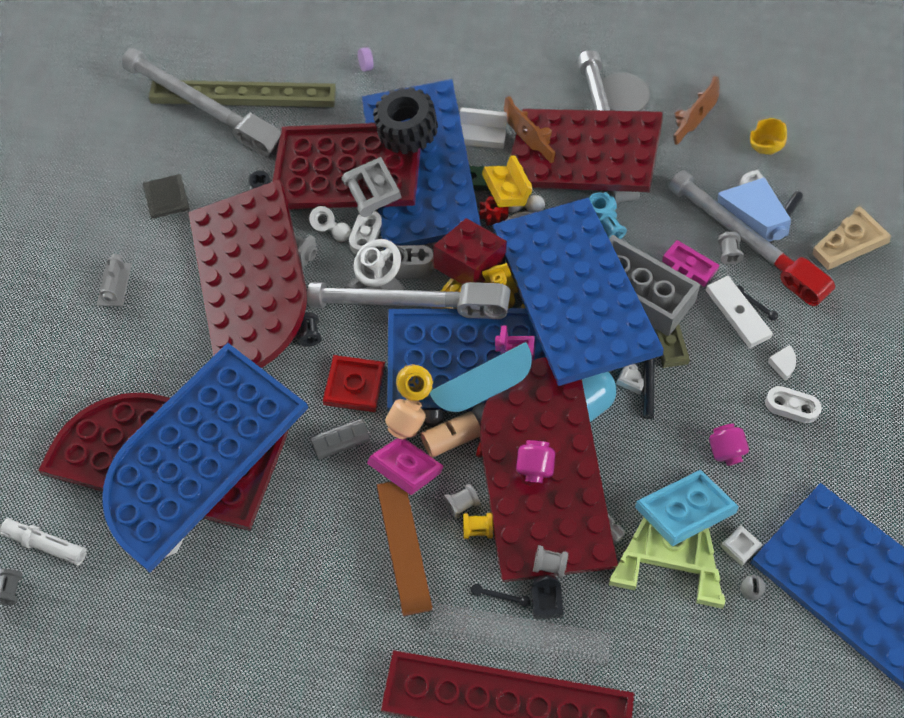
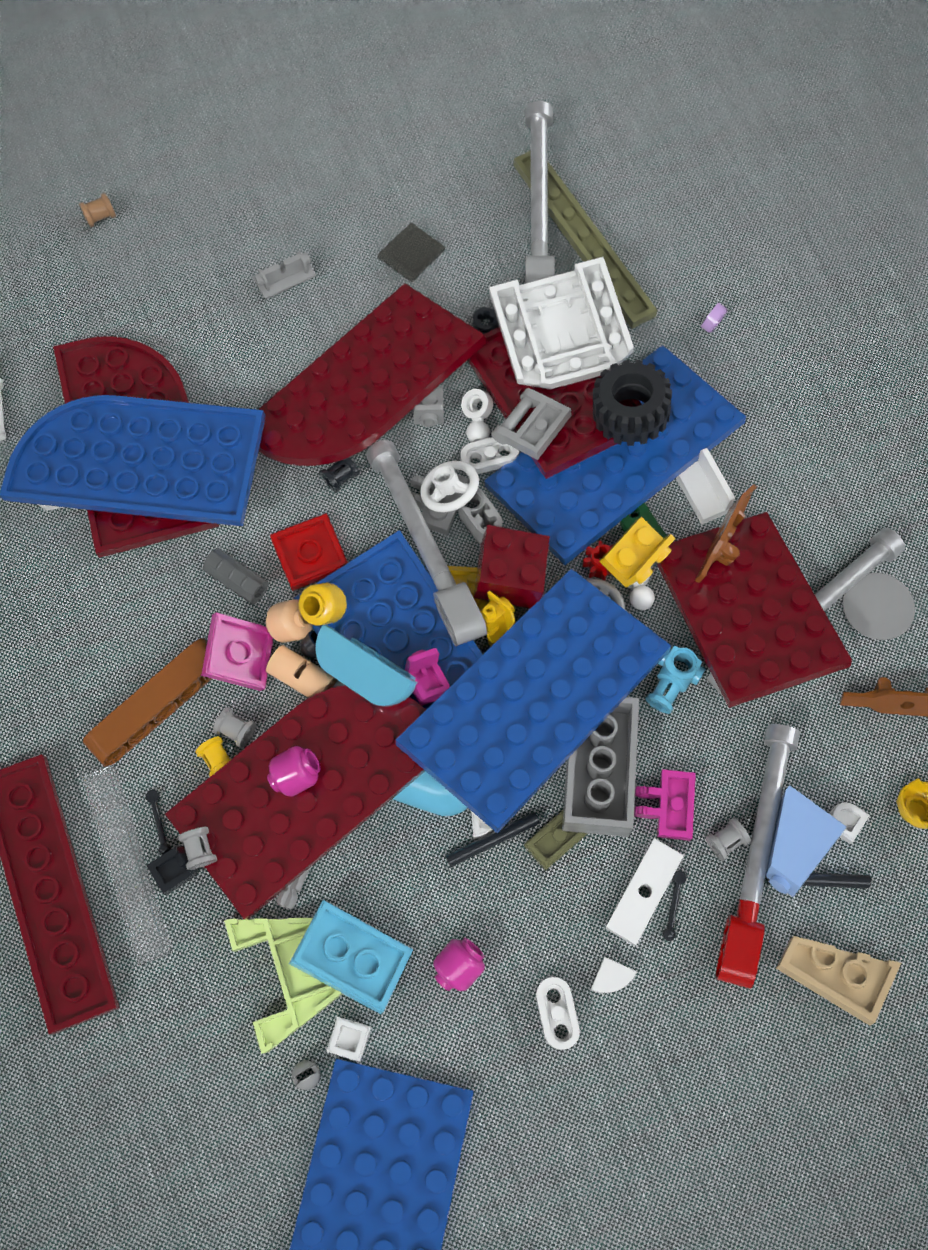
camera: 60 degrees right, 10 degrees up
(311, 132) = (562, 326): none -> white wedge

